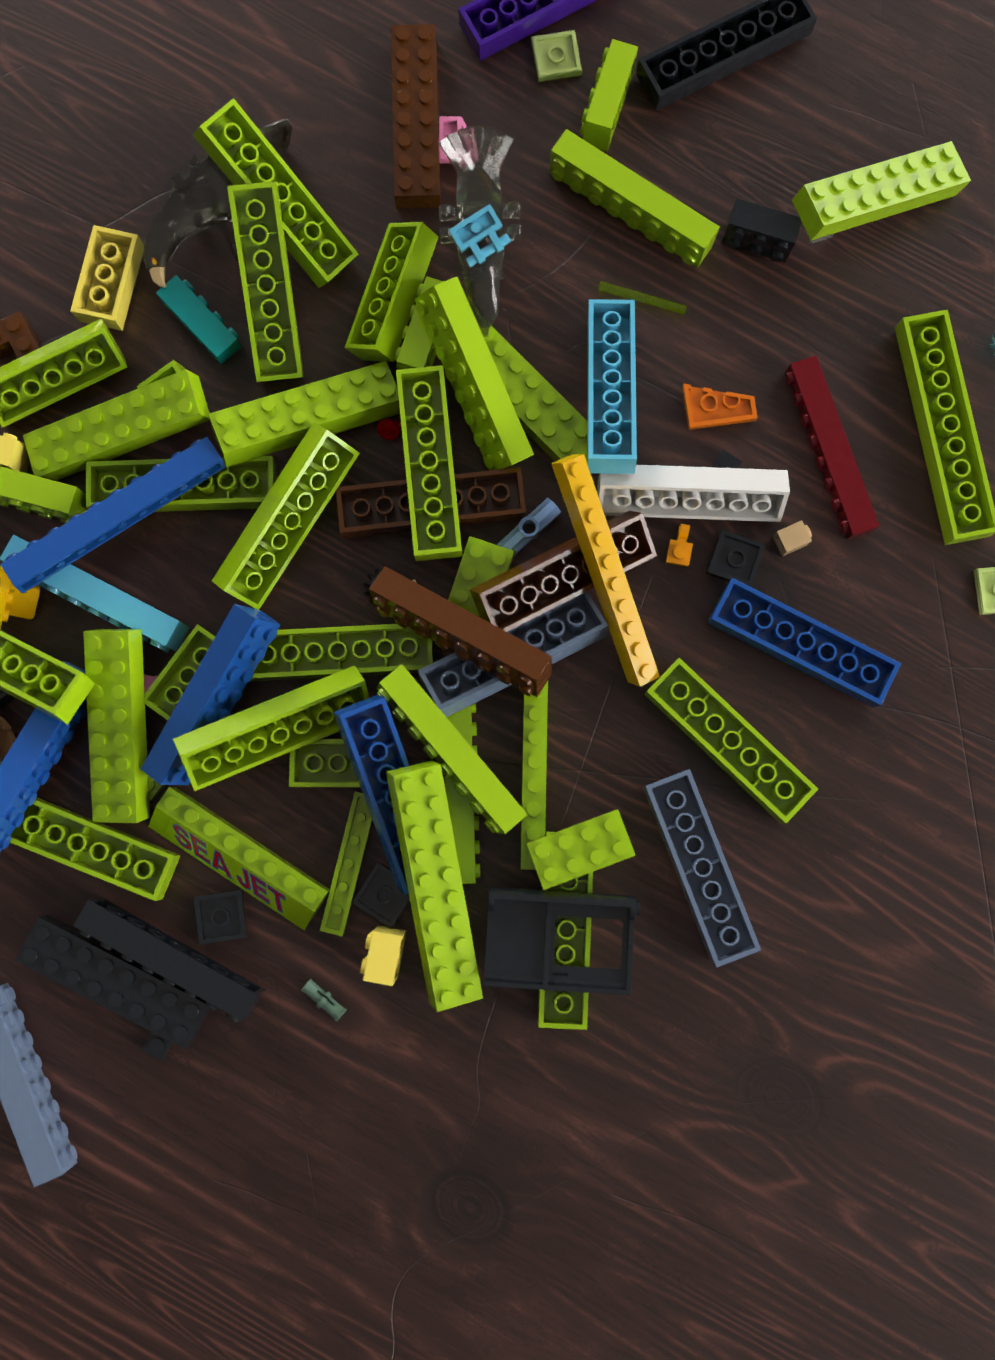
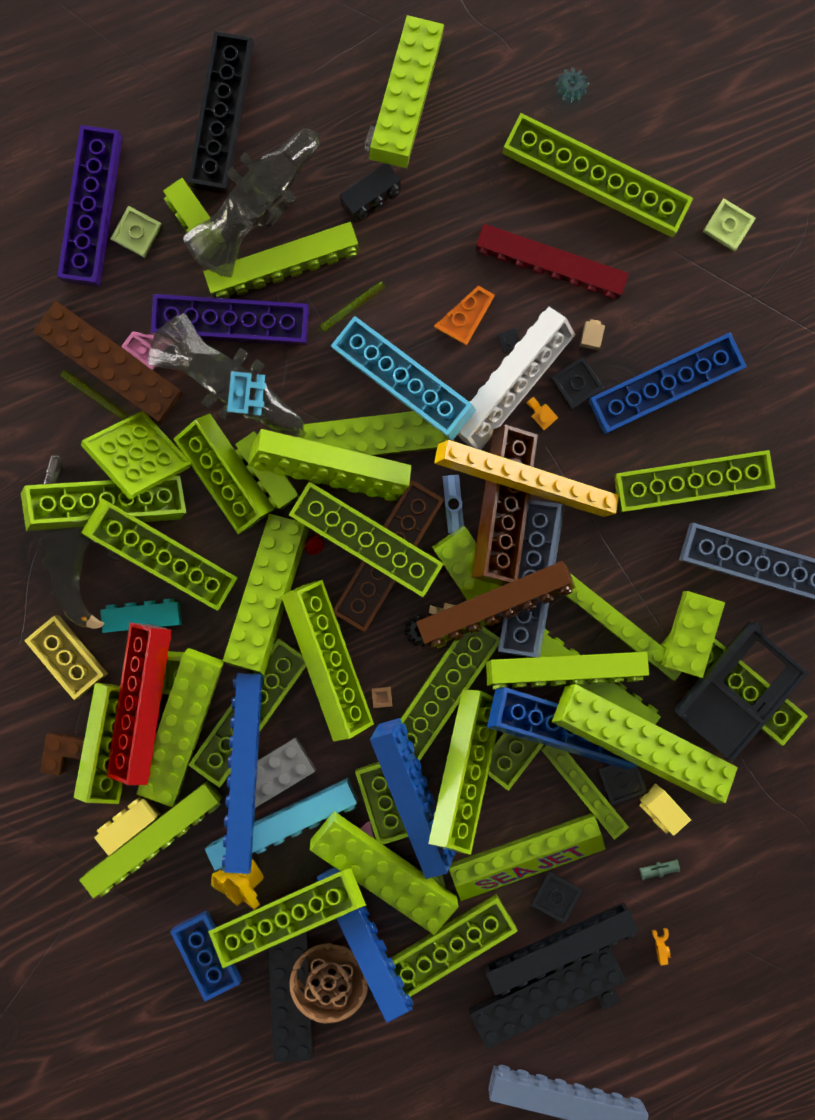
camera: 55 degrees left, 5 degrees up
(109, 370) = (138, 704): none -> red brick
(146, 555) = (281, 770): none -> light grey brick
(243, 1065) = (662, 950): none -> light orange plate
(291, 600) = (382, 697): none -> medium nougat plate
(346, 195) = (136, 454): none -> lime plate
(375, 127) = (94, 395): none -> clear neon green bar
(548, 200) = (236, 318): none -> dark purple brick
(670, 119) = (255, 201): none -> clear smoke animal

